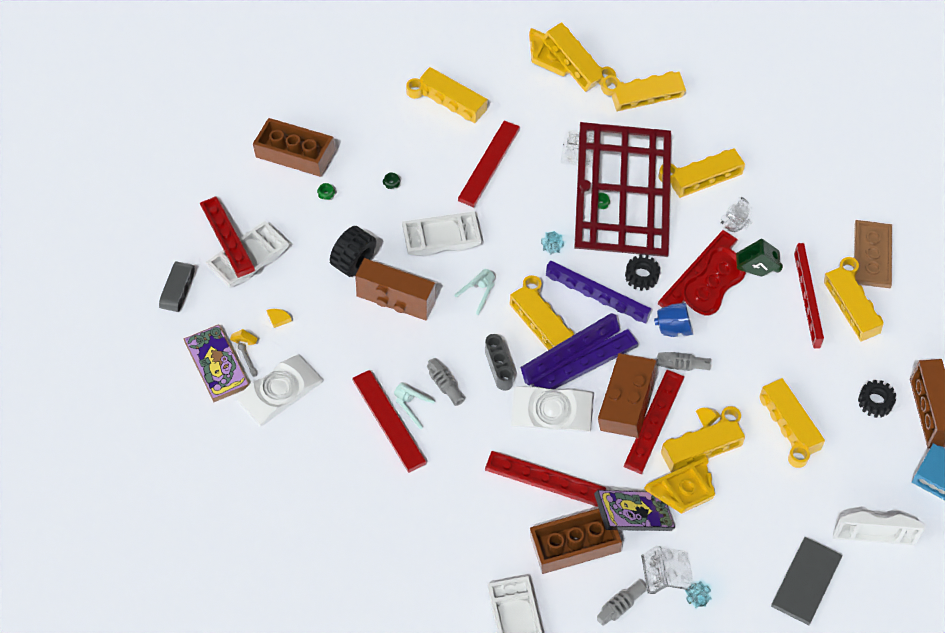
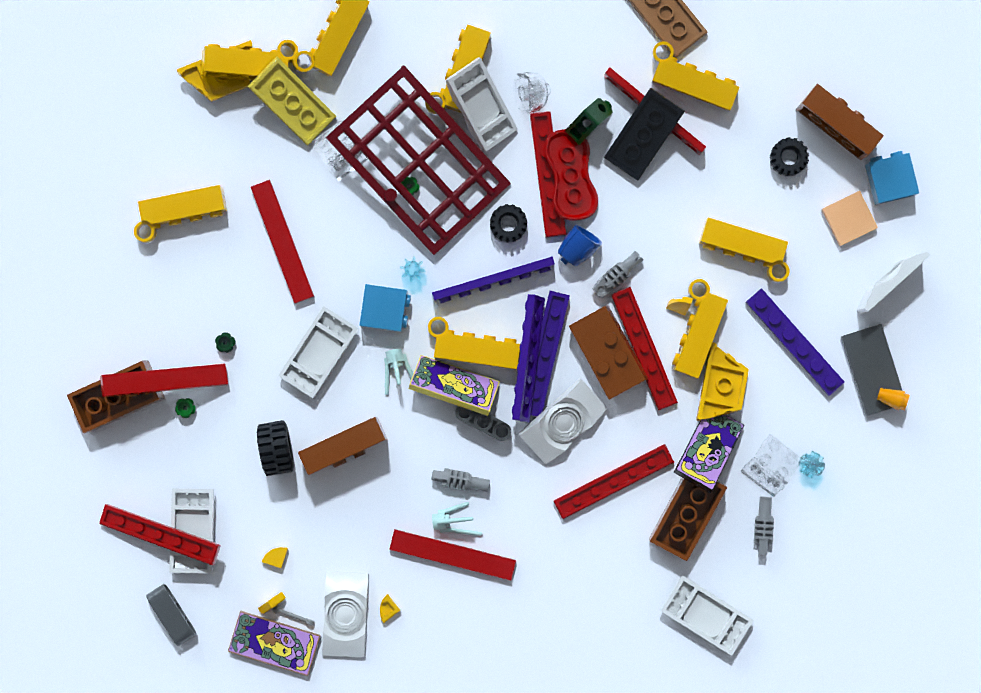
camera: 45 degrees left, 30 degrees up
(309, 412) = (388, 608): none -> yellow tile
(333, 157) = (163, 380): none -> red tile
(504, 323) = (454, 385): none -> tile
(509, 246) = (384, 308): none -> dark azure piece
(579, 95) = (291, 101): none -> light yellow tile
(696, 191) = (481, 104): none -> white slope
(766, 512) = (795, 342): none -> dark purple plate
(788, 298) = (644, 134): none -> black tile
(804, 606) = (894, 398): none -> light orange cone
(884, 473) = (849, 218): none -> light nougat tile

